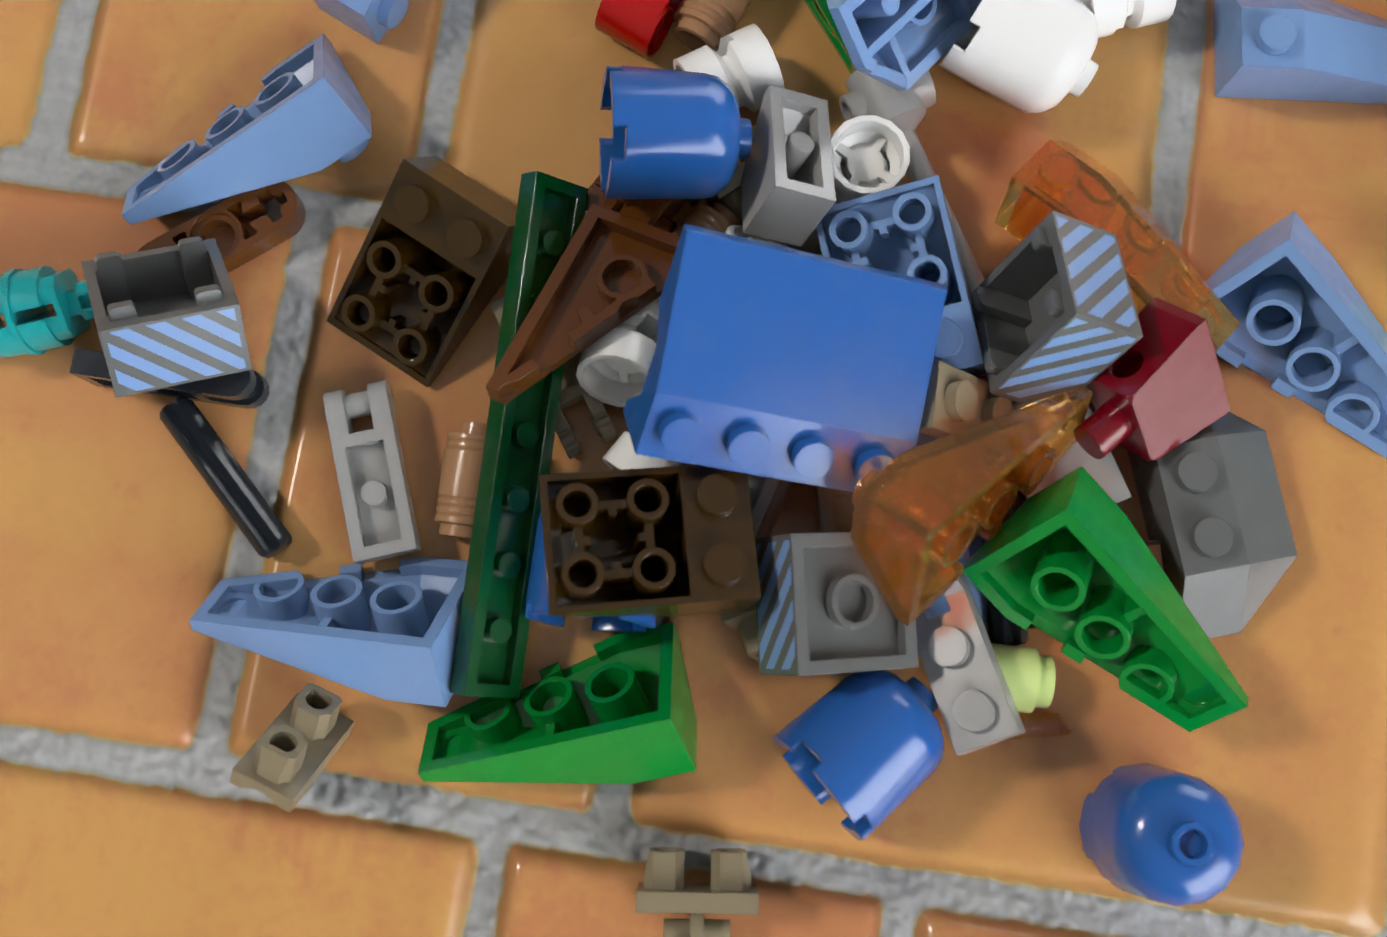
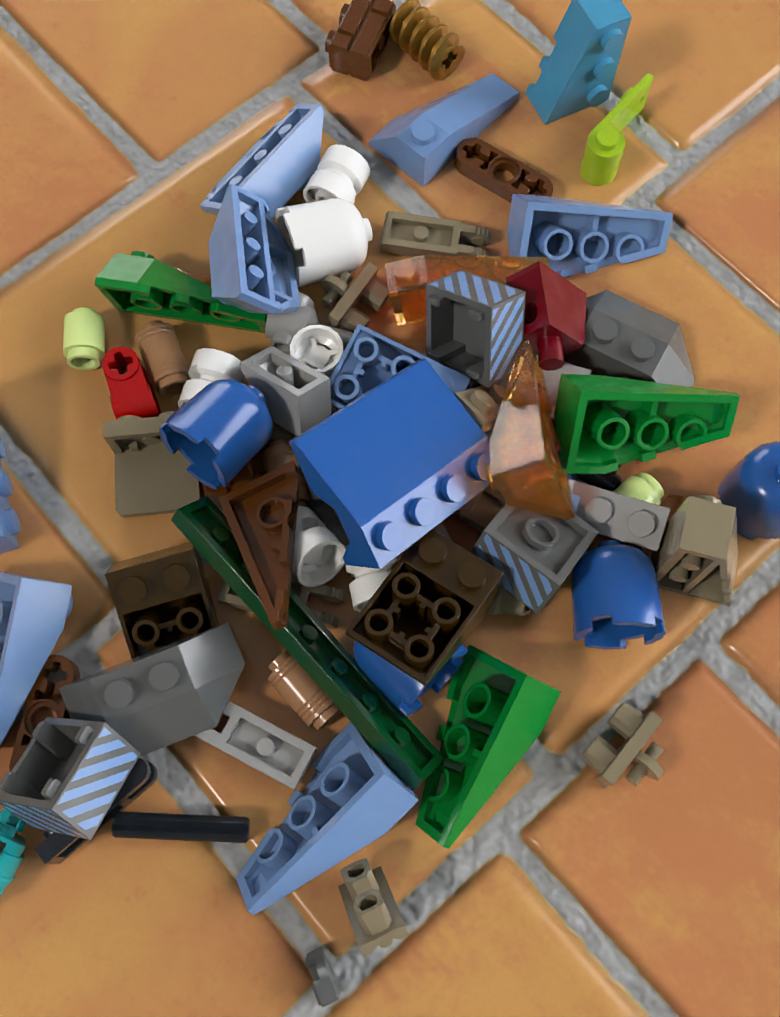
camera: 50 degrees left, 10 degrees down
(186, 768) = (324, 983): none -> dark grey tile
(337, 333) = (163, 692): none -> dark grey wedge
(560, 102) = (146, 473): none -> dark tan bracket
(1001, 807) = (699, 550): none -> dark tan wedge
(1007, 142) = (364, 289): none -> dark tan hips
(1149, 162) = (428, 235): none -> dark tan hinge
(1328, 151) = (496, 160): none -> reddish brown beam

